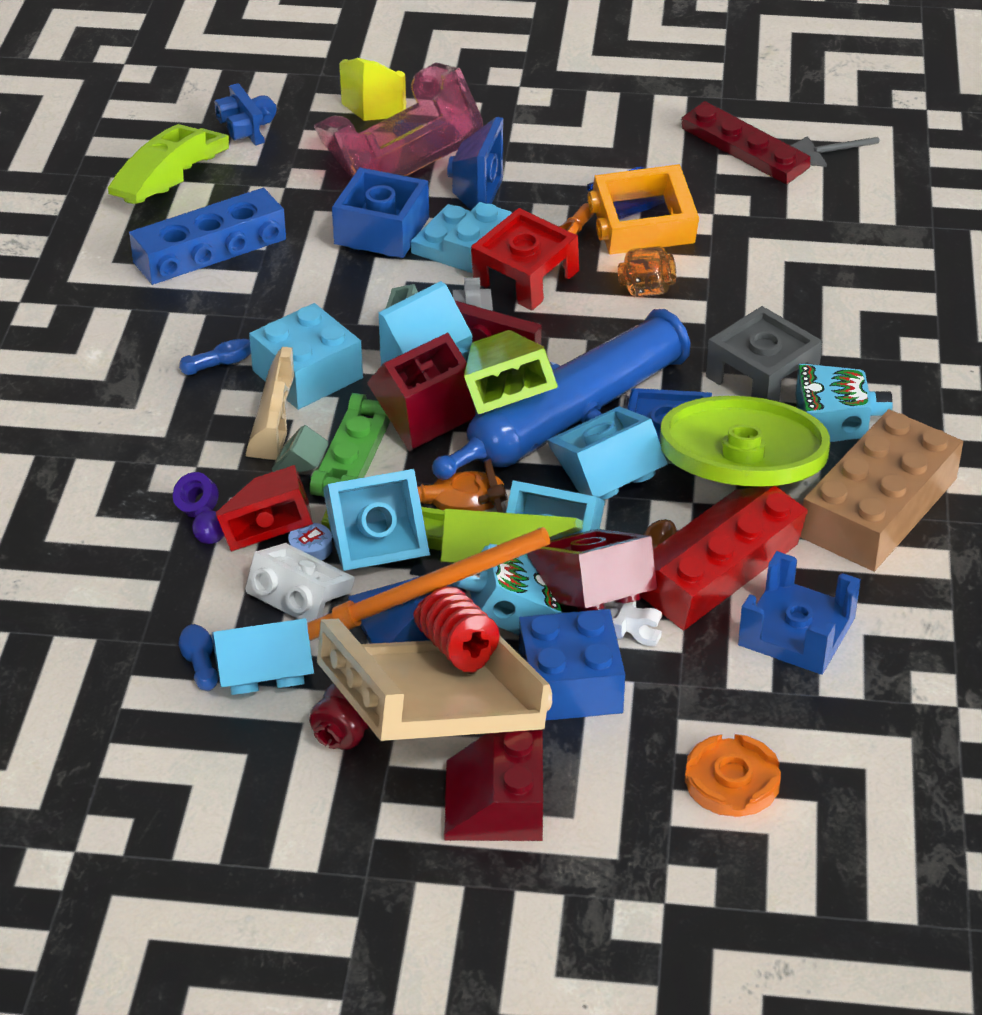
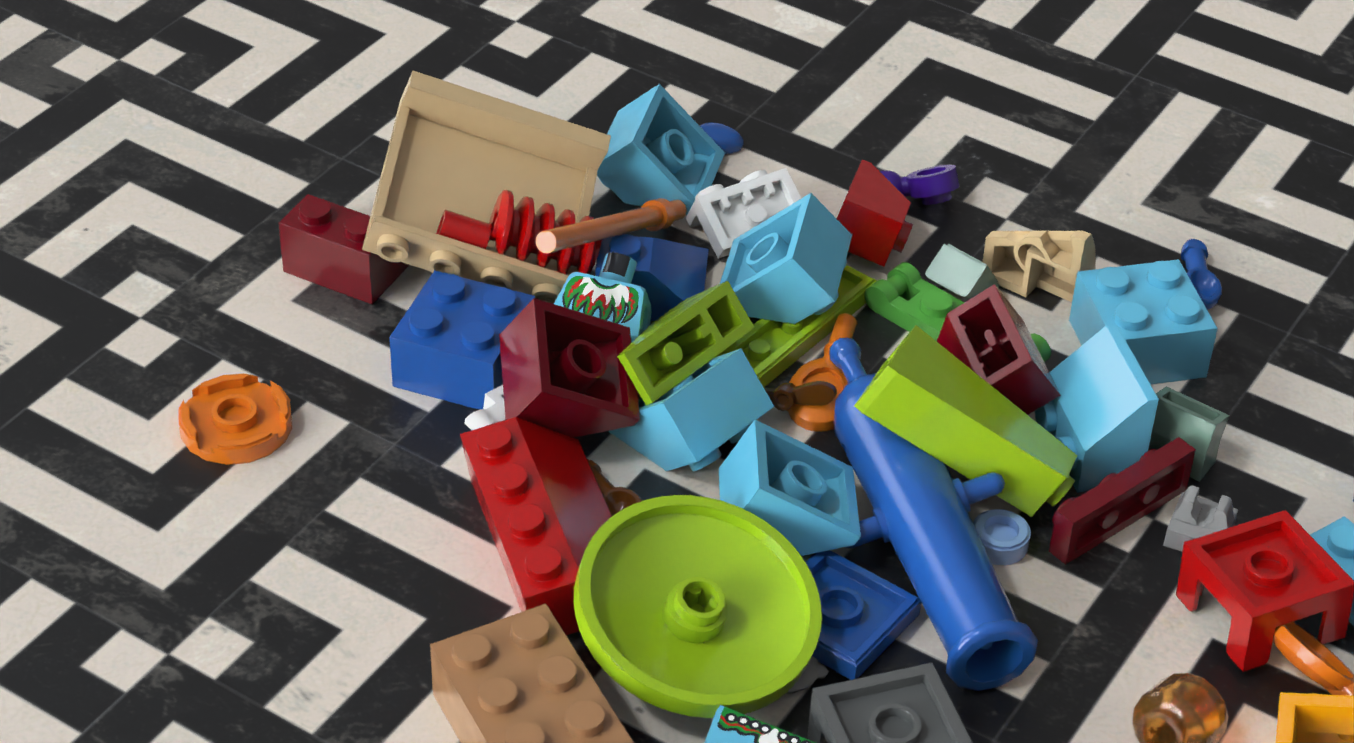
camera: 115 degrees right, 0 degrees up
(495, 665) = (464, 229): none -> red hinge
(797, 621) = (395, 560): blue panel -> none

